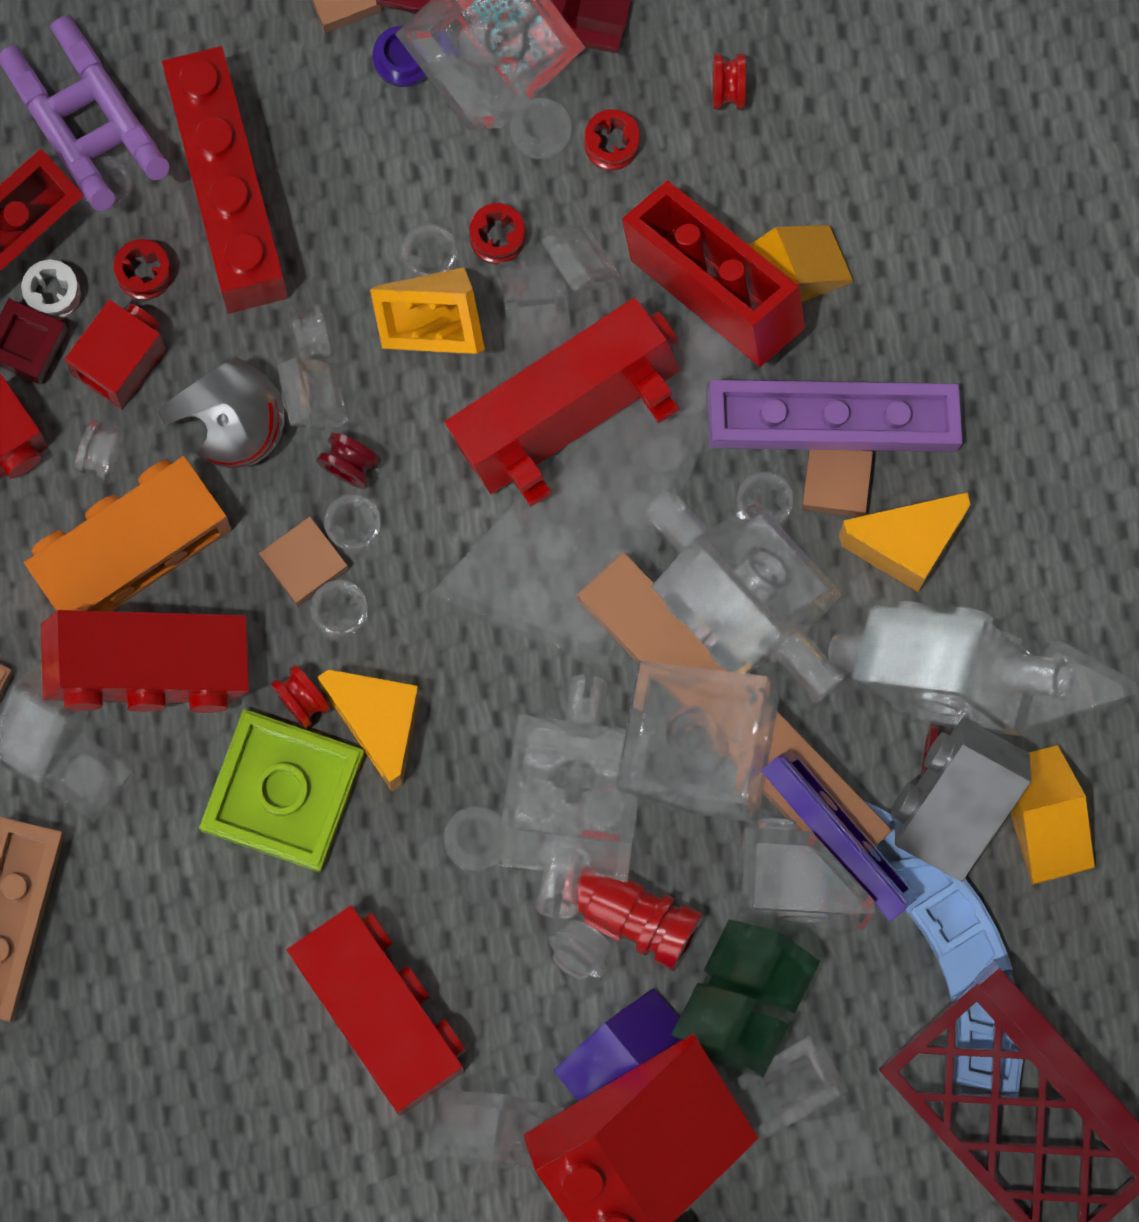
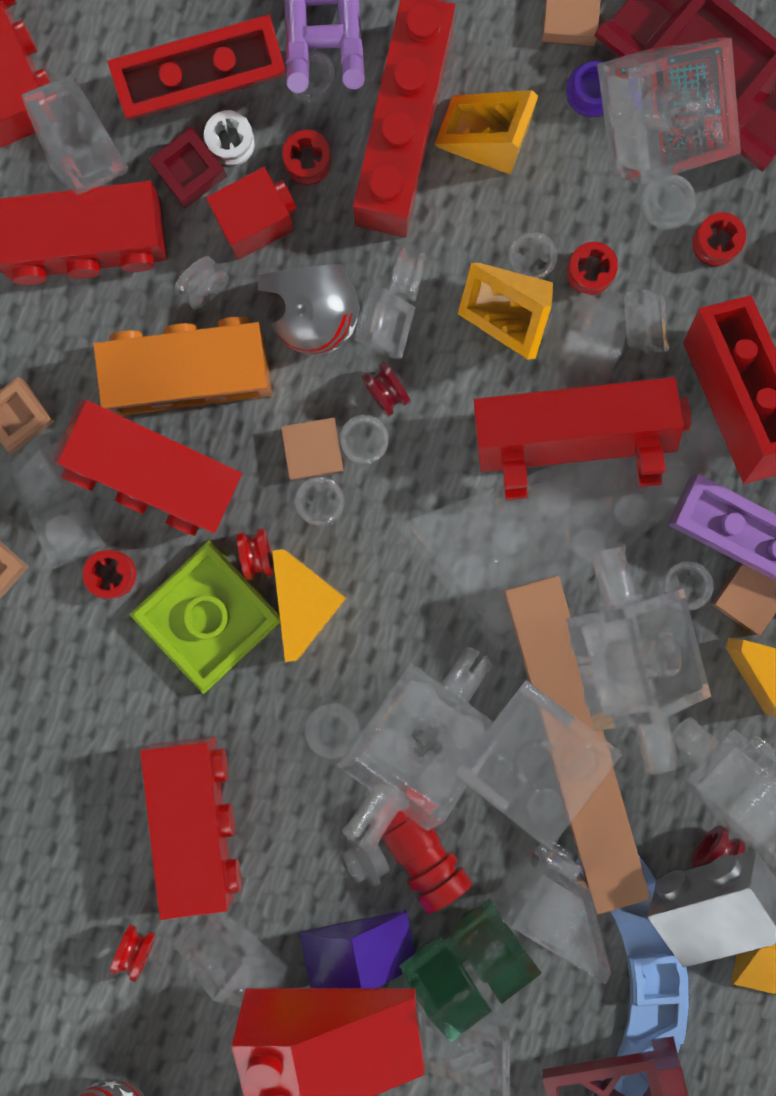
camera: 30 degrees right, 10 degrees up
(169, 784) = (94, 581): none -> red bush
(314, 147) = (488, 127): none -> light orange slope
(386, 1177) = (132, 953): none -> red bush
(839, 833) = (610, 893): dark purple tile -> none

